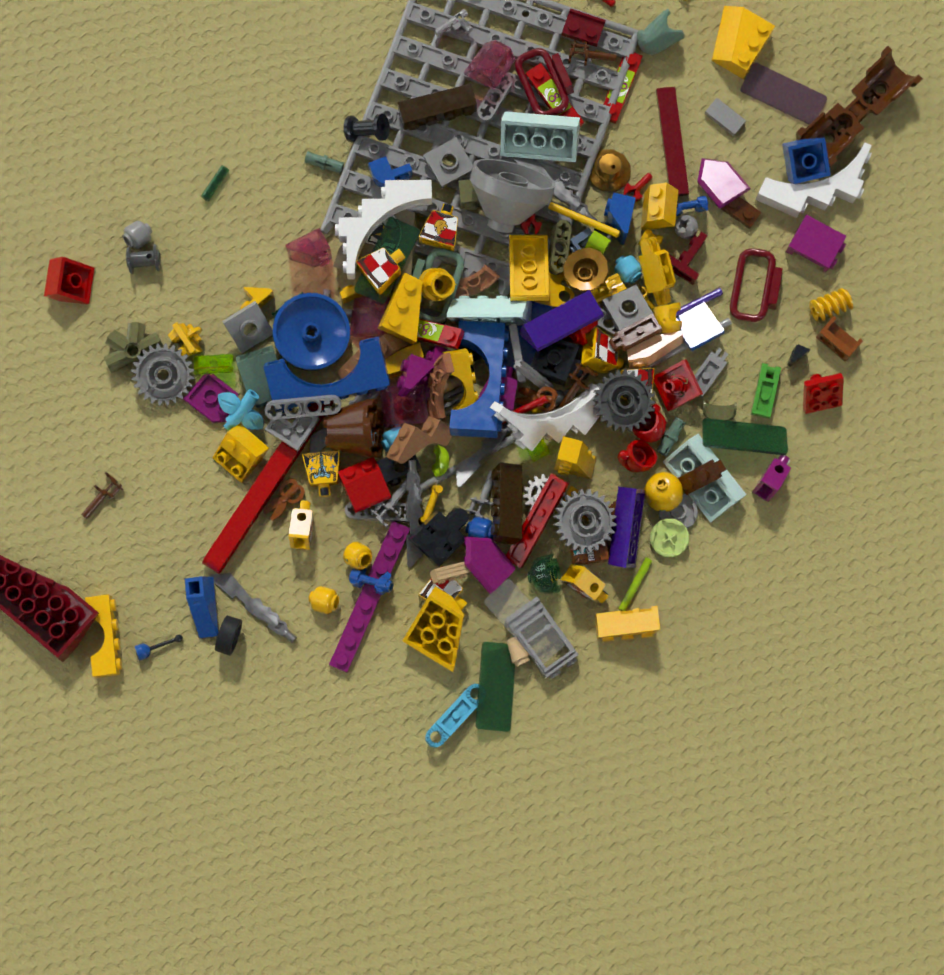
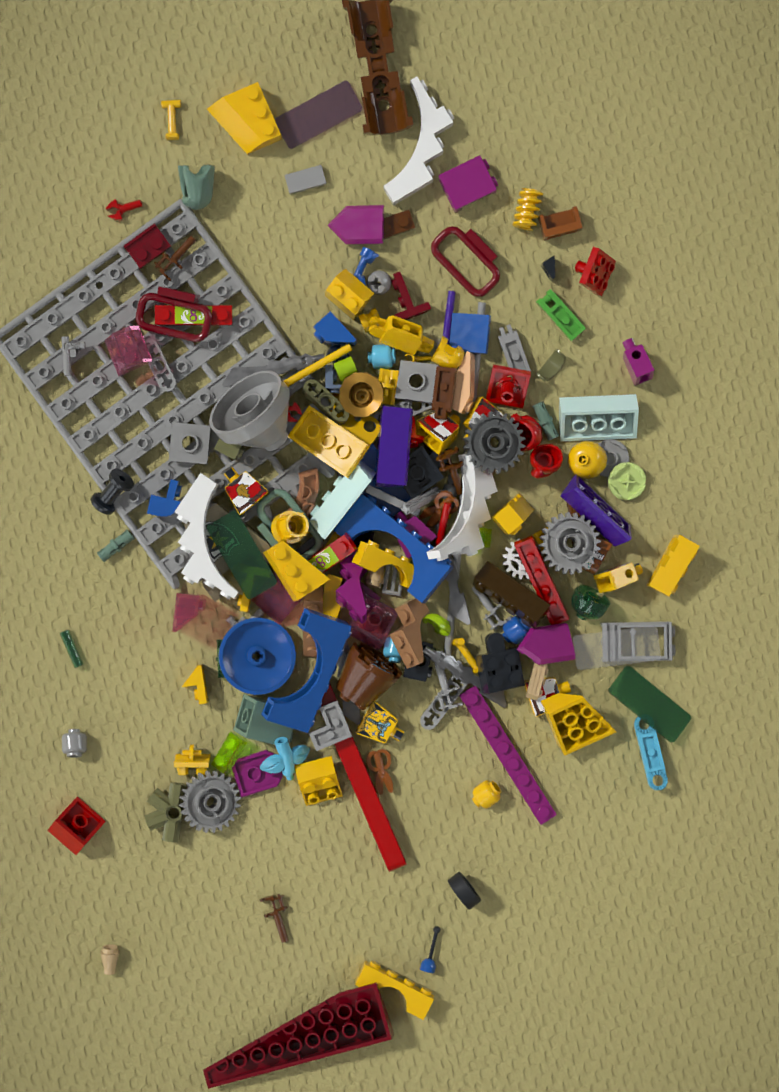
camera: 45 degrees left, 10 degrees up
(141, 259) = (98, 754): dark grey hose -> none
(202, 604) = (424, 894): blue slope -> none
(236, 323) = (209, 698): light grey piece -> none
(254, 606) = (425, 859): flat silver sword -> none
(301, 526) = (420, 778): yellow torso -> none
(303, 409) = (324, 710): light grey beam -> none
(357, 555) = (470, 743): yellow head -> none
(364, 484) = (416, 699): red slope -> none
(381, 268) = (247, 565): torso -> none
(382, 585) = (508, 741): blue piece -> none
(437, 107) = (135, 420): dark brown brick -> none
(437, 379) = (372, 583): nougat tile -> none
(517, 653) = (638, 670): tan cone -> none
(539, 136) = (220, 352): light aqua slope -> none
(606, 177) = (283, 319): pearl gold hat -> none
(628, 188) = (316, 297): red bar -> none
(634, 61) = (205, 223): red plate -> none
(635, 584) = (644, 534): lime bar -> none
(672, 139) = (295, 239): dark red tile -> none
(702, 476) = (598, 421): reddish brown hinge -> none
(744, 436) = (587, 361): clear green piece -> none
(806, 160) = (393, 142): blue slope -> none

